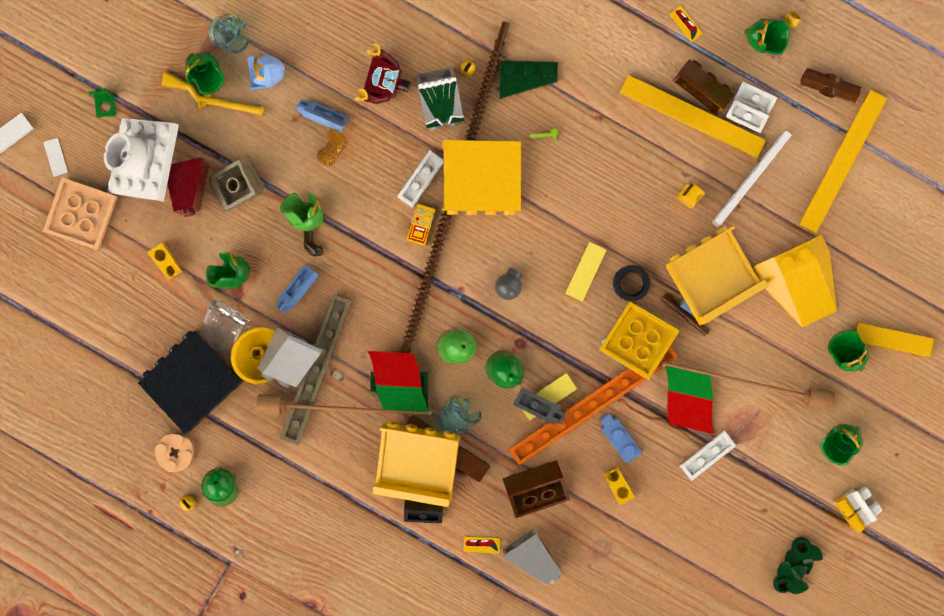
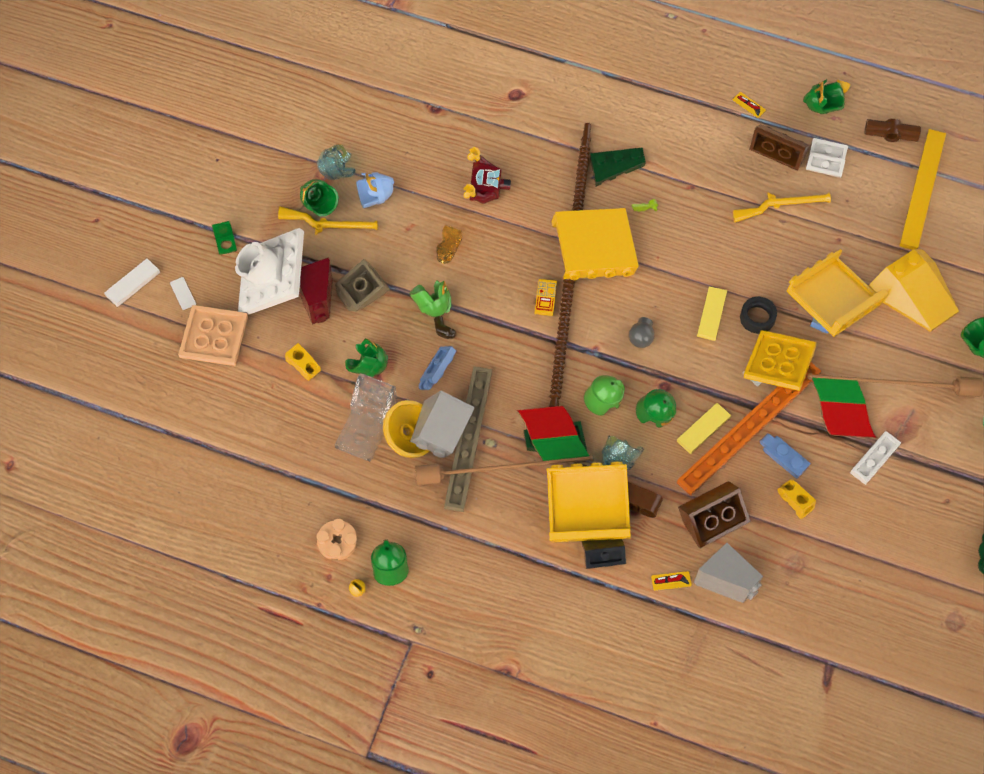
camera: 10 degrees left, 25 degrees down
(189, 381) = (345, 466): black panel -> none
(322, 115) = (433, 219): medium blue hinge -> none
(421, 178) = (537, 259): white tile -> none
(440, 98) = (541, 188): slope -> none
(471, 70) = (563, 167): yellow hinge -> none
(539, 407) = (698, 434): dark grey hinge -> none
(650, 160) = (742, 214): none -> yellow piece
(684, 314) = (817, 336): reddish brown bar -> none
(690, 195) = (794, 231): yellow leg -> none
(692, 116) = (776, 173): yellow tile -> none
(751, 178) = (844, 212): white tile -> none

